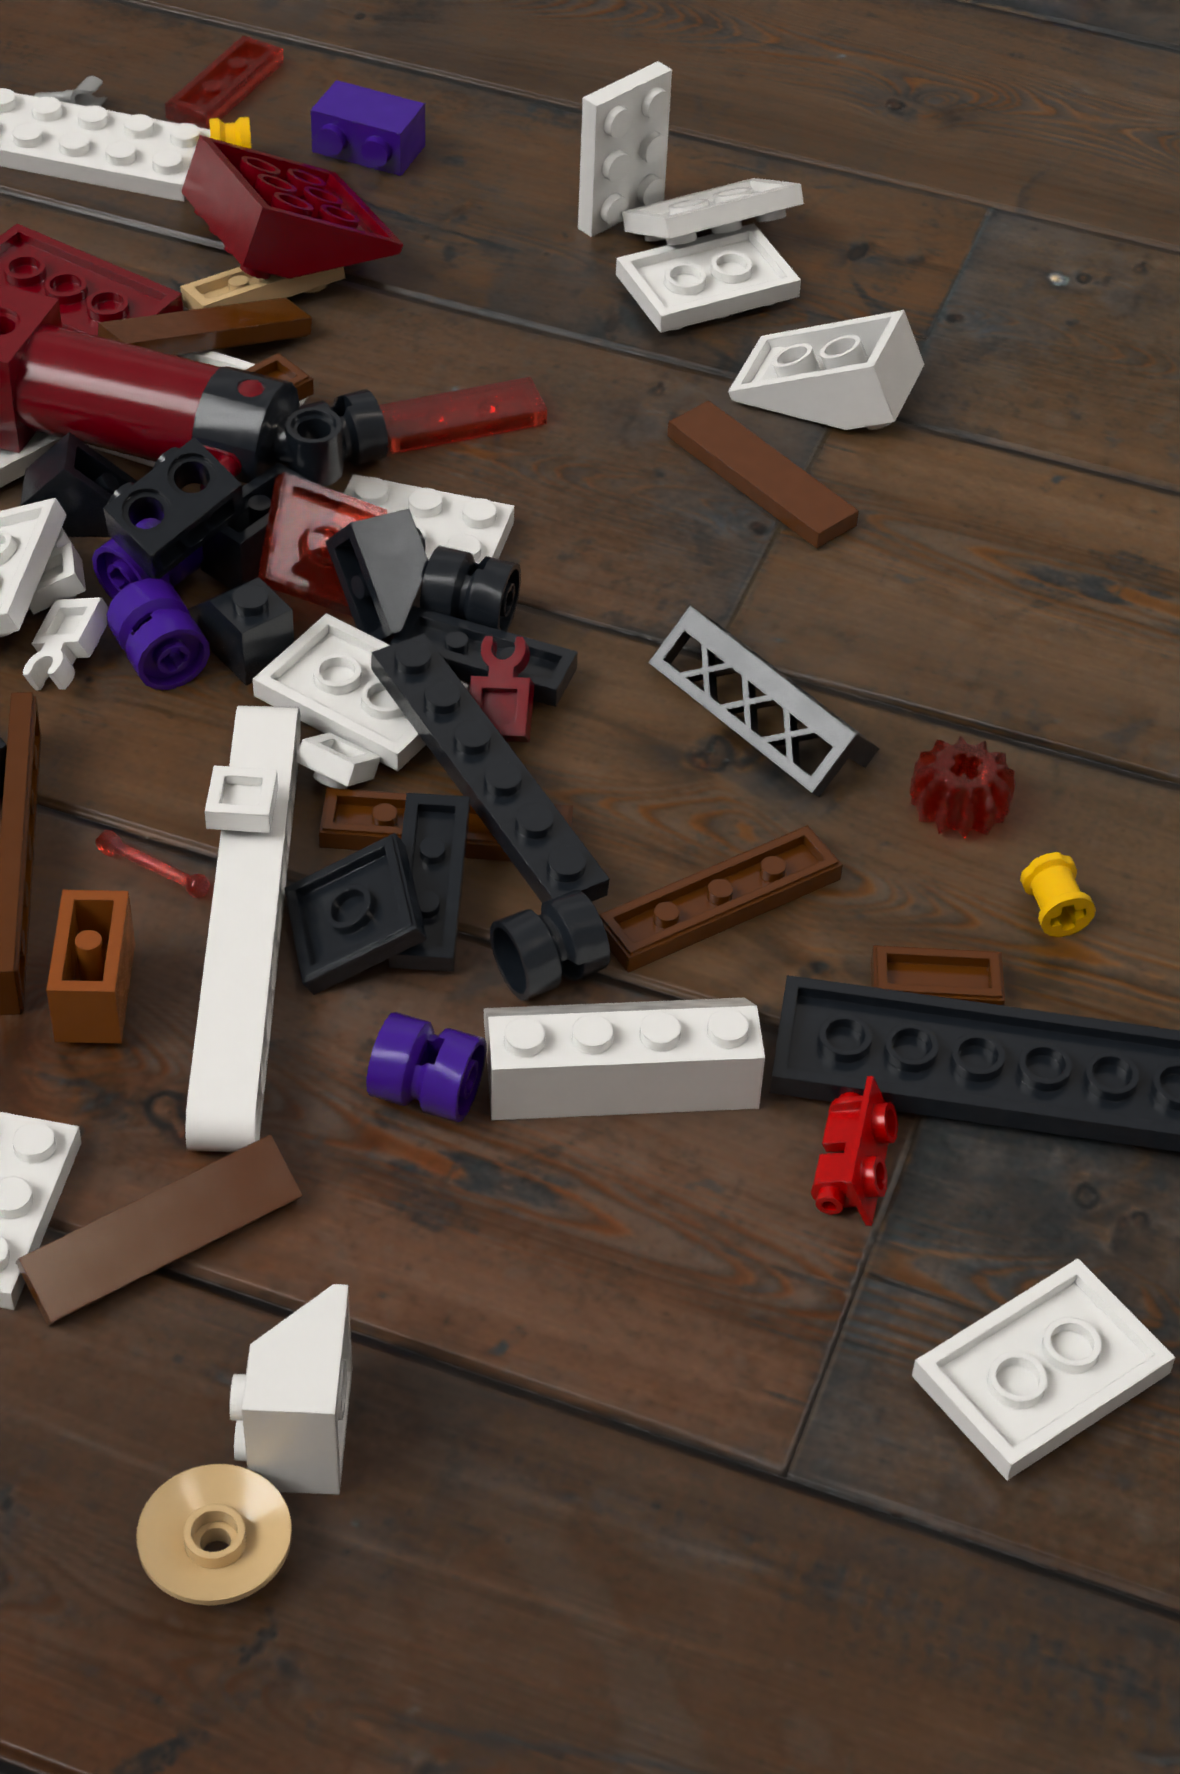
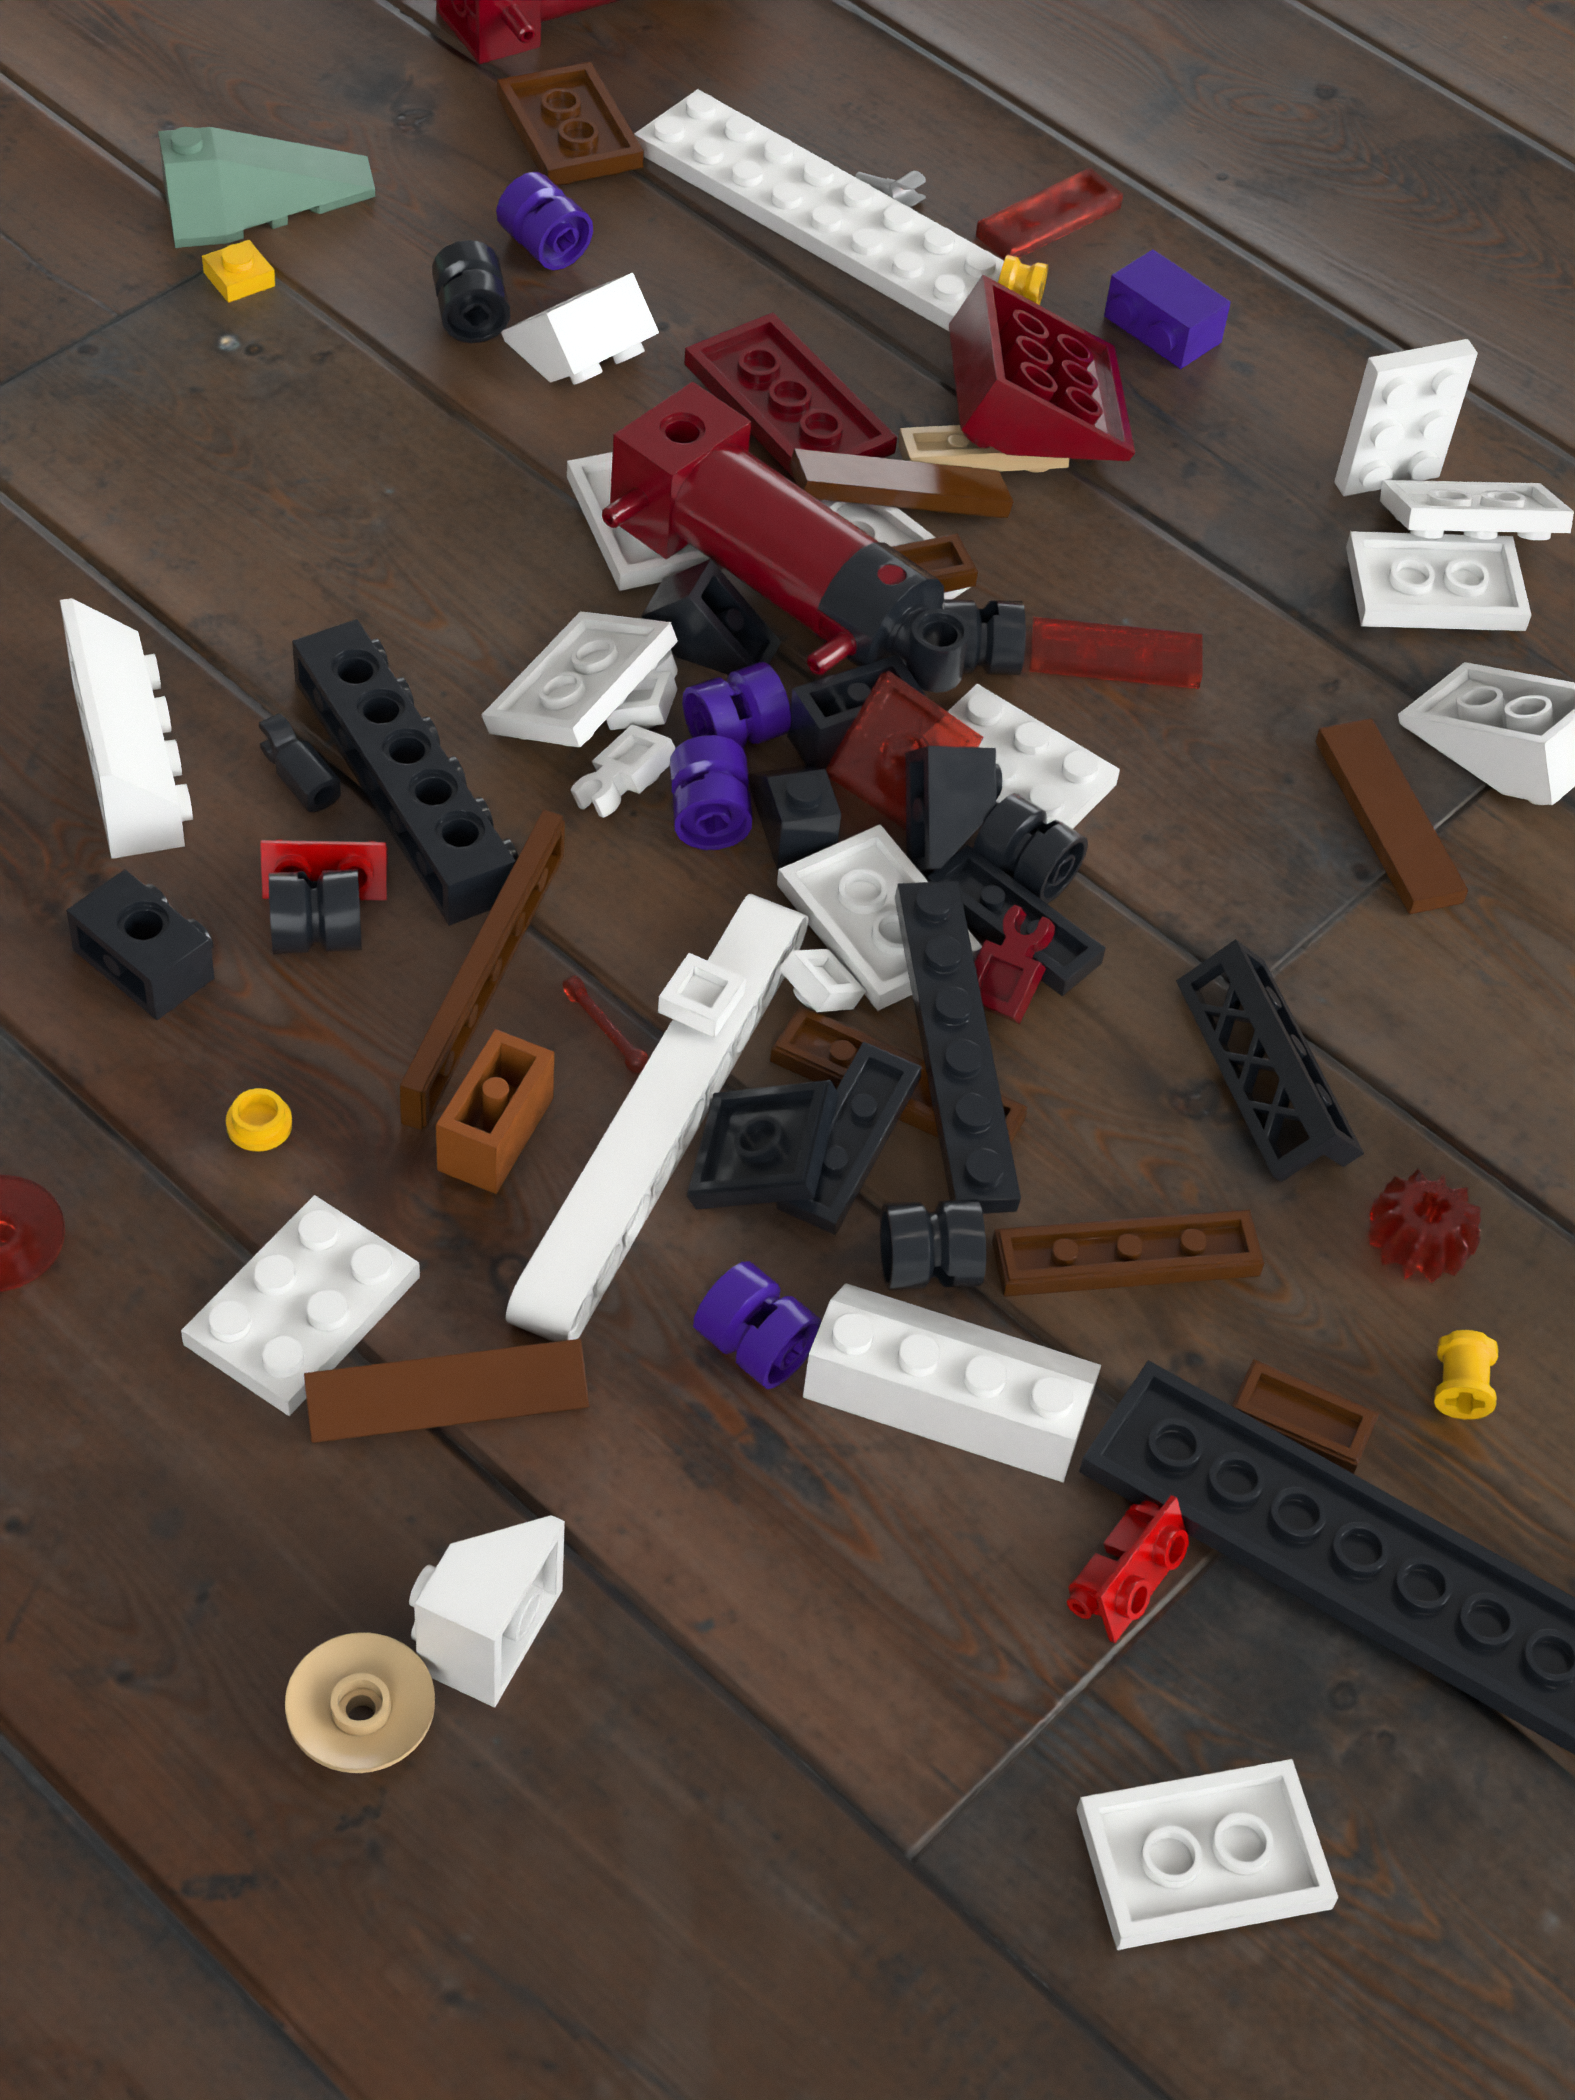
camera: 20 degrees right, 5 degrees up
(185, 517) = (774, 689): black brick -> none

